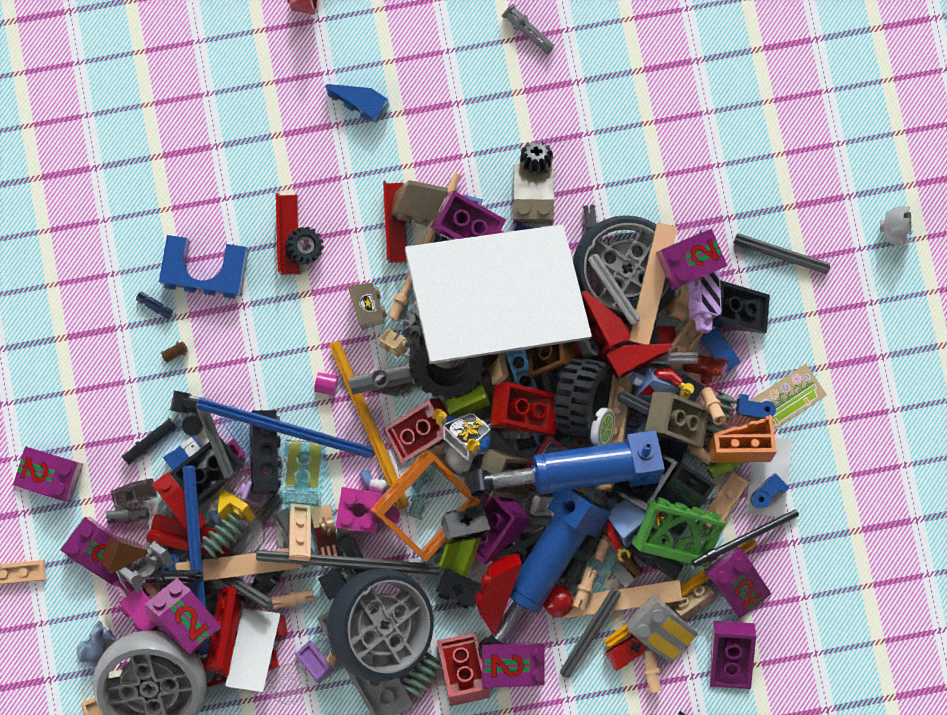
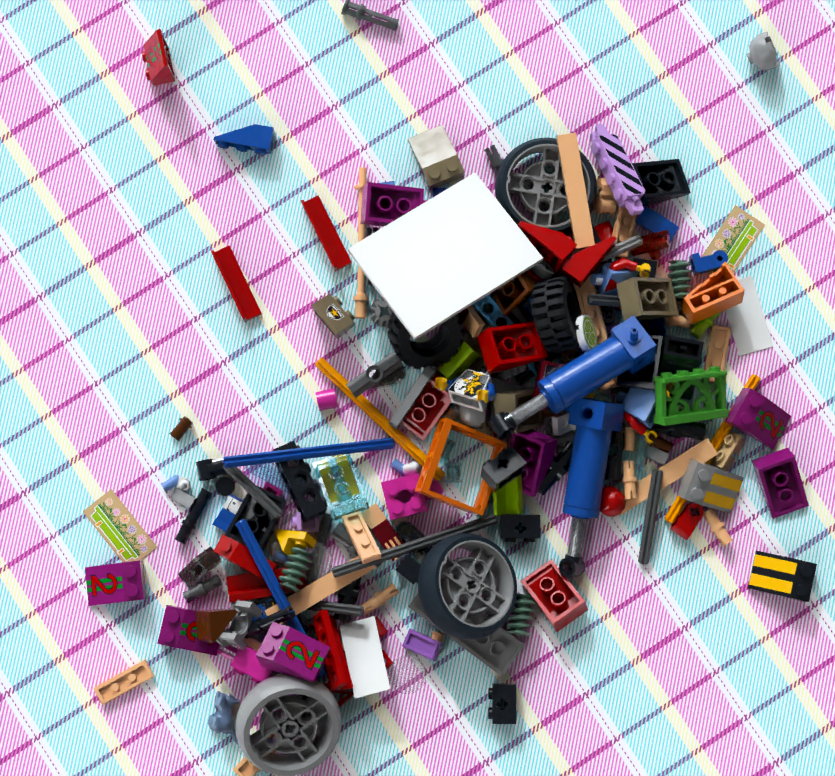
camera: 25 degrees left, 0 degrees up
(74, 423) = (119, 528): none -> sticker
(147, 419) = (183, 498): none -> light grey piece
(148, 401) = (176, 481): none -> arm
(154, 305) = (145, 395): dark blue axle -> none
(226, 282) = (201, 346): blue arch -> none
(295, 248) = (249, 292): black bush -> none
(327, 526) = (382, 522): medium nougat plate -> none
(394, 343) = (372, 337): tan hinge -> none
(408, 417) = (412, 397): none -> beam
(418, 202) = (340, 206): dark tan slope -> none
(496, 589) = (555, 512): red wedge -> none
(513, 665) = (596, 572): magenta slope -> none
(536, 157) = (425, 124): black gear -> none
(614, 289) = (544, 209): light grey axle -> none
(691, 259) = (600, 155): magenta slope -> none
(712, 554) = (727, 403): black bar -> none
(713, 406) = (672, 274): light nougat pin -> none
(761, 496) = (748, 331): blue leg -> none
(781, 253) = (673, 118): dark grey axle -> none

